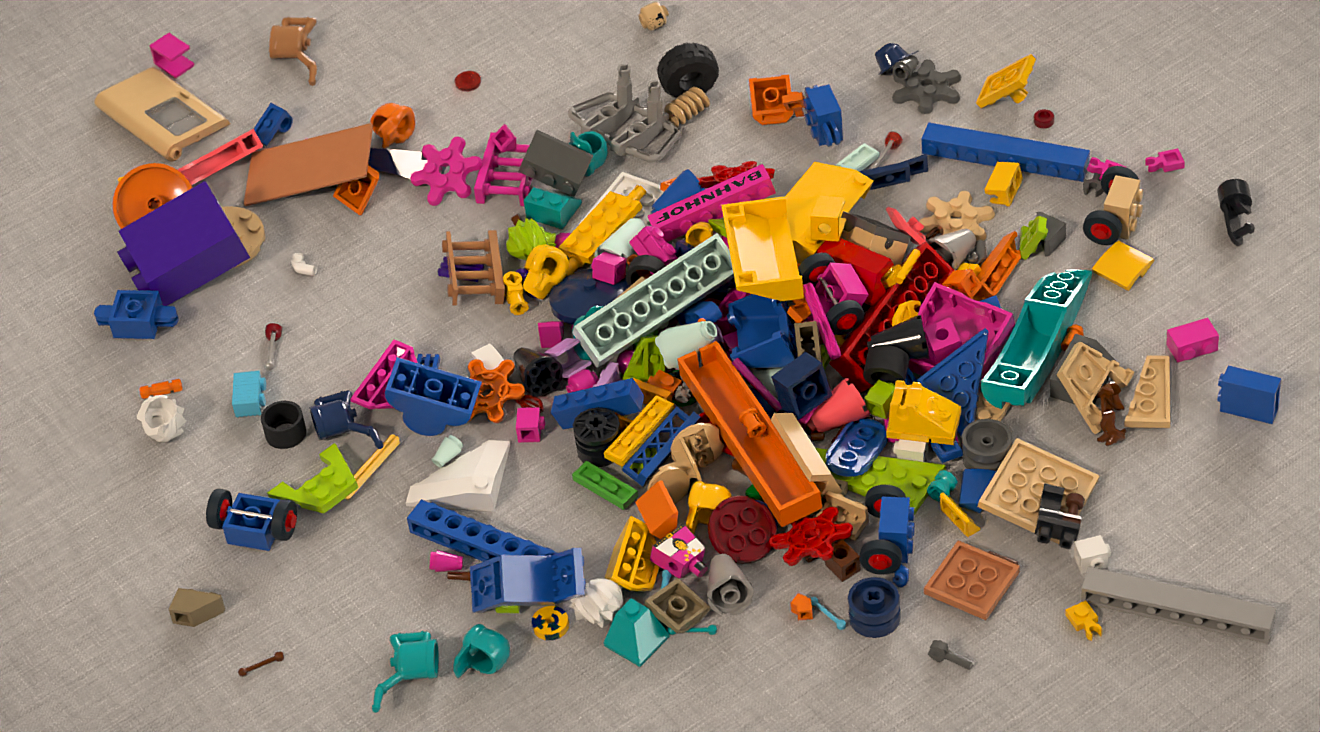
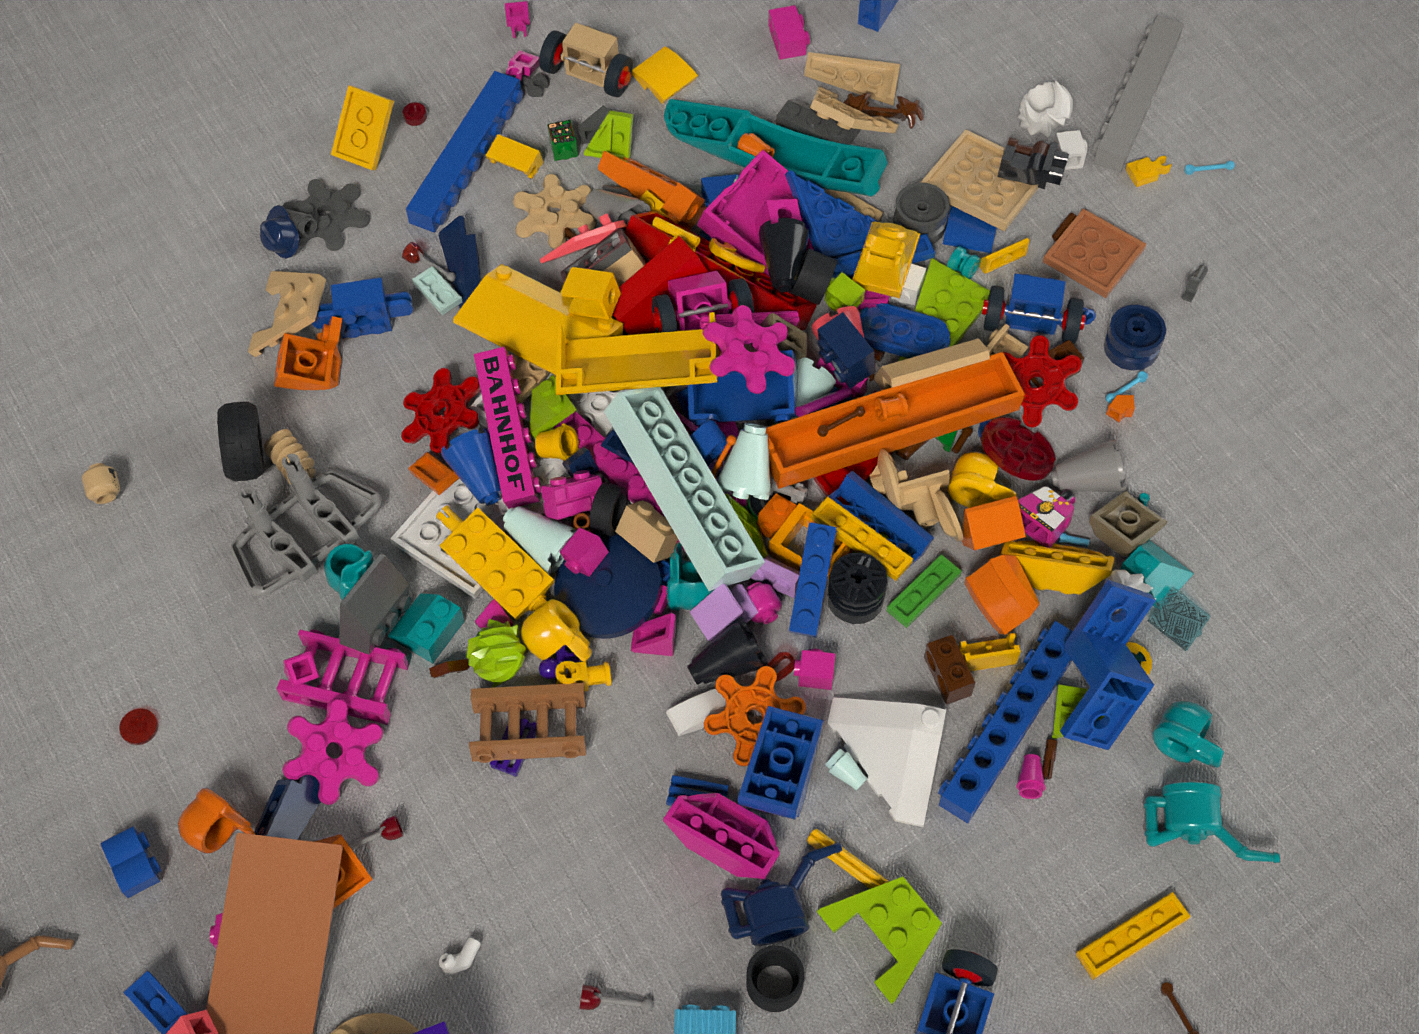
camera: 90 degrees left, 15 degrees up
(320, 633) = (1132, 935): none -> yellow tile
(366, 94) = (131, 862): none -> blue brick
(391, 212) = (389, 830): none -> dark red hinge
(532, 502) = (949, 669): none -> reddish brown brick
(552, 528) = (990, 653): none -> yellow hinge
(593, 653) = (1179, 618): none -> clear light blue piece
(599, 521) = (1002, 593): none -> orange slope
(724, 383) = (823, 430): none -> reddish brown hinge
(770, 319) = (736, 357): none -> dark pink plate
(830, 76) = (296, 307): none -> tan wing
(1026, 206) = (562, 140): none -> brick
(1032, 321) = (754, 145): none -> orange cone
(1094, 654) = (1190, 169): none -> medium azure hinge
(1133, 528) = (1045, 108): none -> white hair

